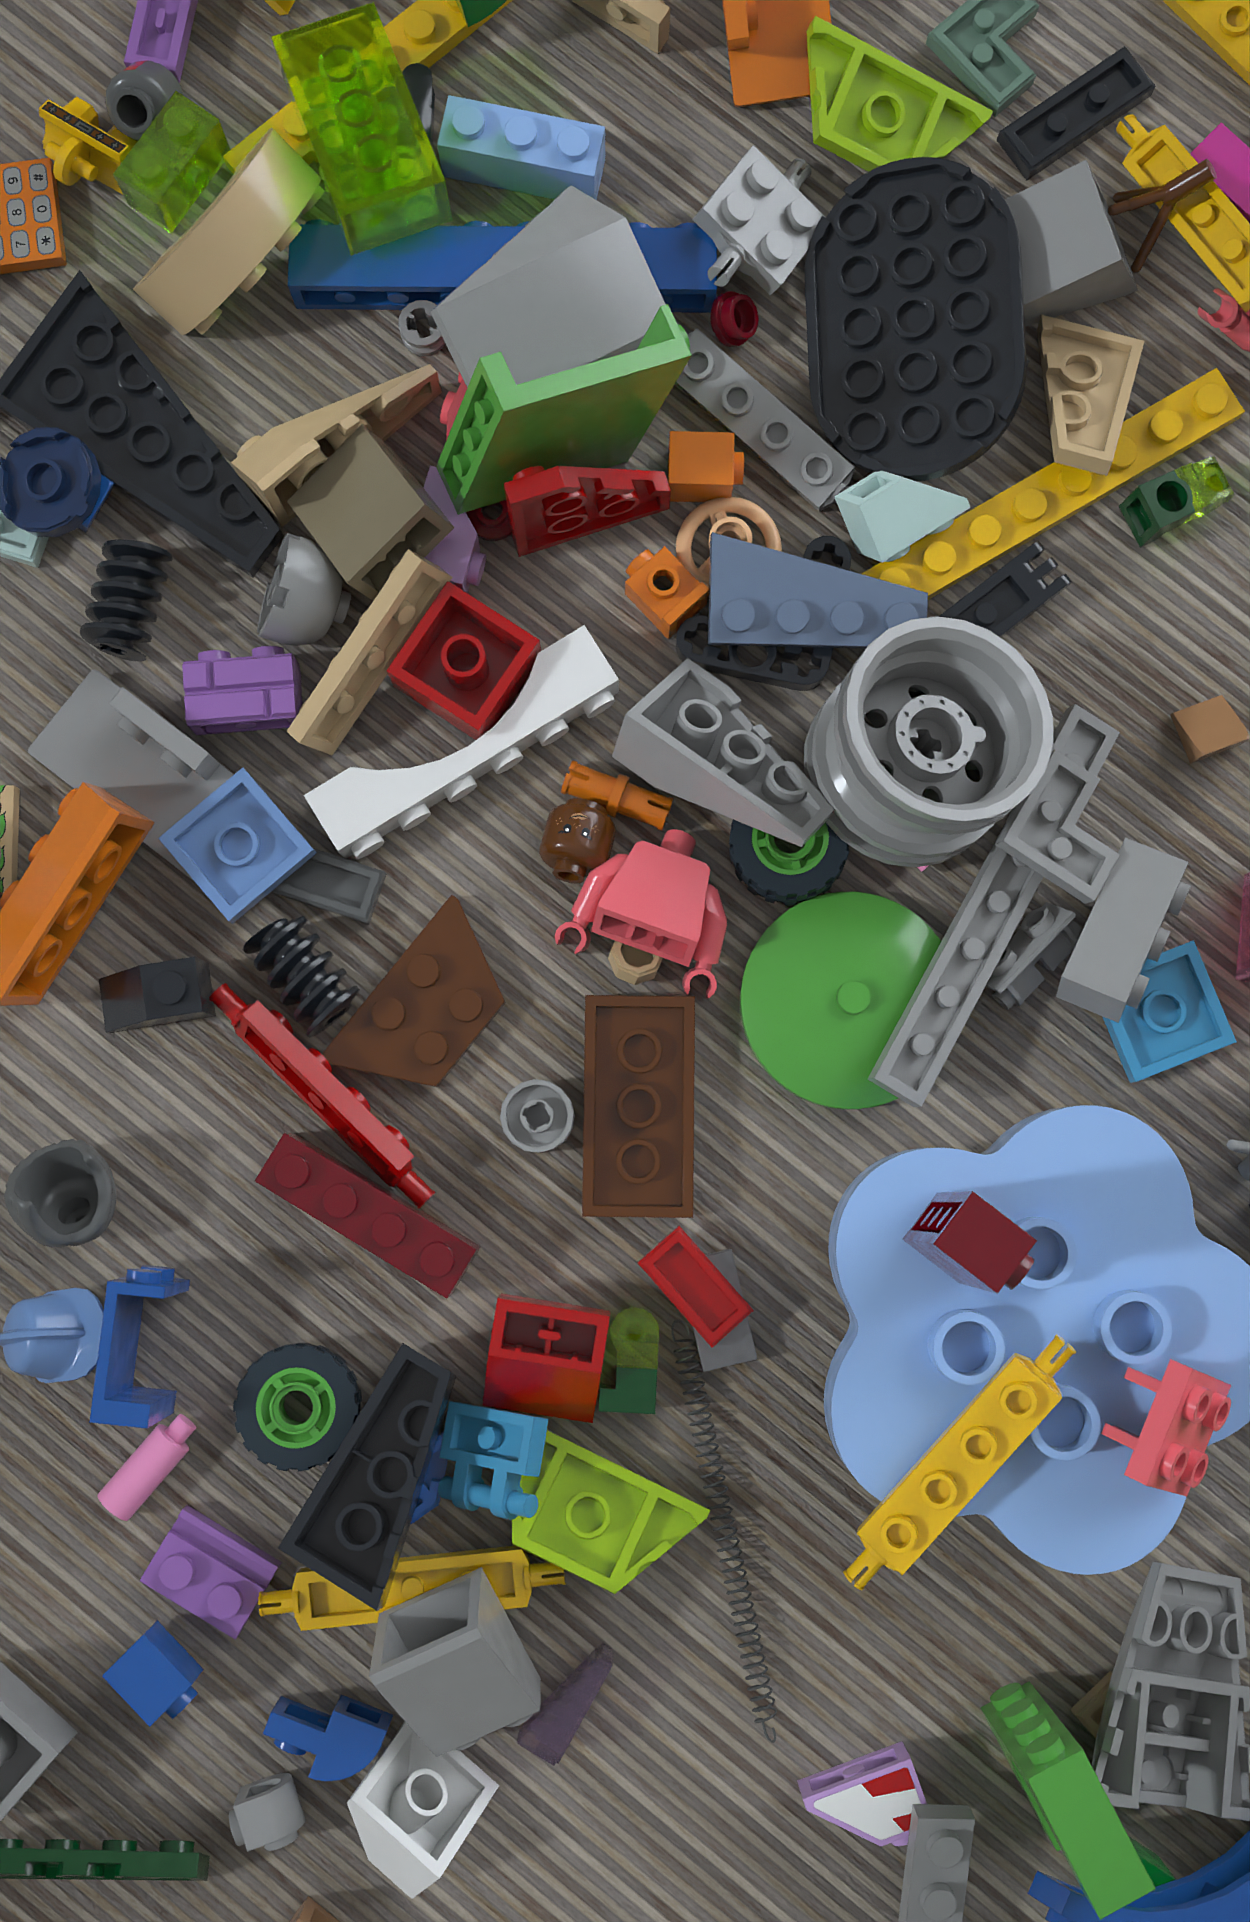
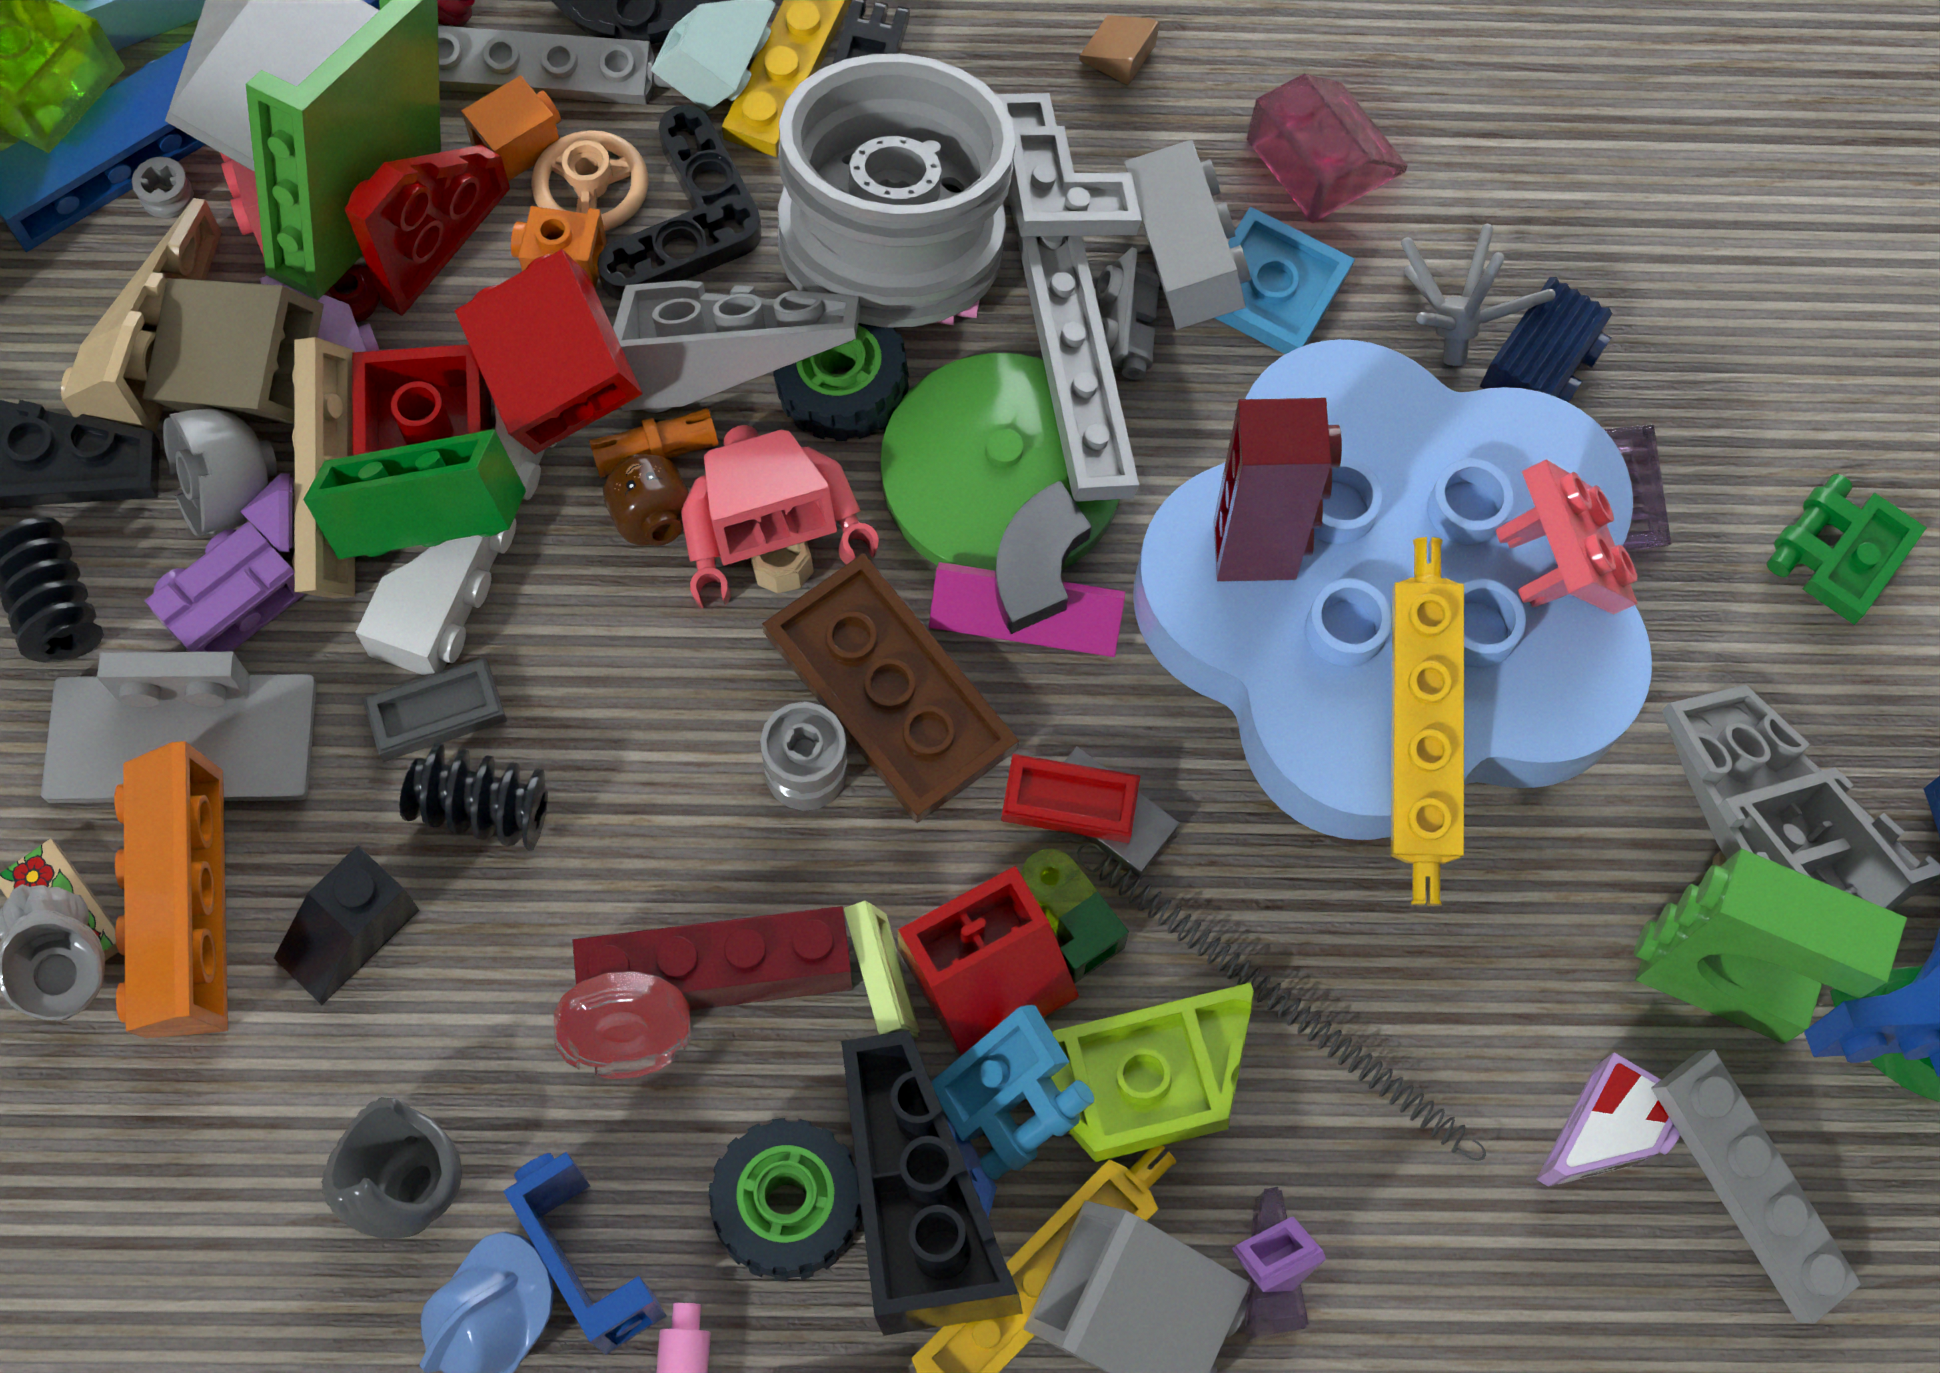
camera: 40 degrees left, 15 degrees down
(237, 845) = (323, 725): medium blue plate -> none
(275, 1213) = (622, 1024): none -> clear tile
(311, 1079) = (577, 889): red plate -> none
(313, 658) = (274, 512): none -> medium lavender slope
(409, 731) = (416, 495): none -> green brick
(424, 1007) = (618, 751): reddish brown wing -> none
(474, 1305) = (881, 969): none -> yellowish green tile
(570, 1712) = (1280, 1256): none -> medium lavender slope
(579, 687) = (547, 351): none -> red brick
(776, 1125) = (968, 604): none -> dark pink tile
(796, 602) = (680, 173): sand blue wing -> none
(804, 1098) = (1032, 557): none -> tile

